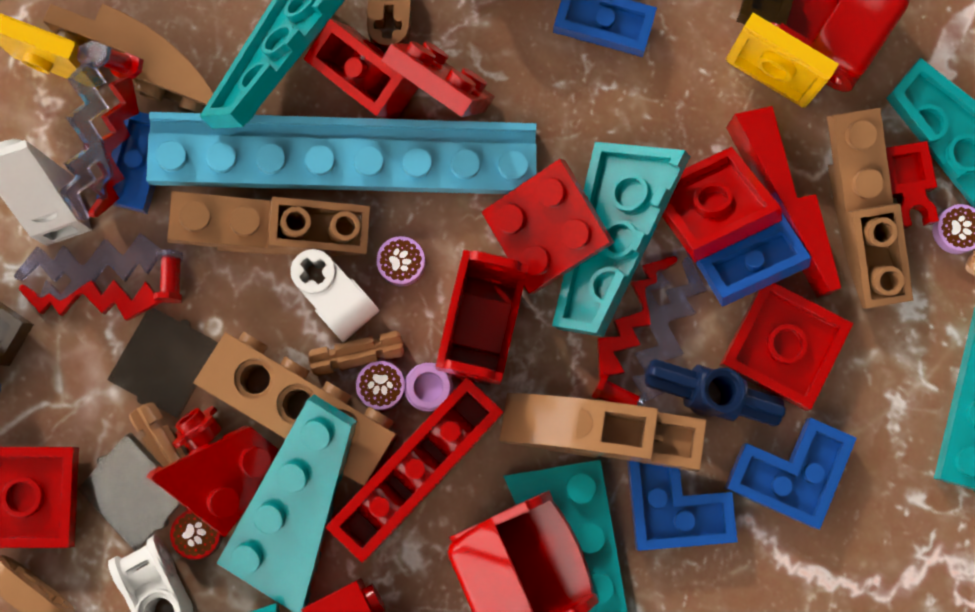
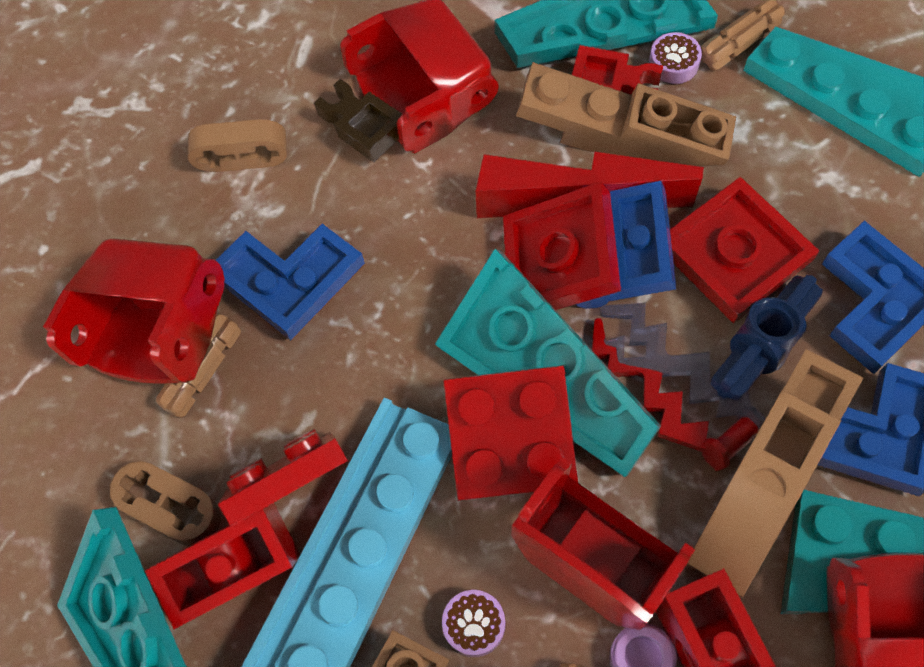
camera: 60 degrees left, 15 degrees down
(780, 61) = (441, 127): yellow plate -> none

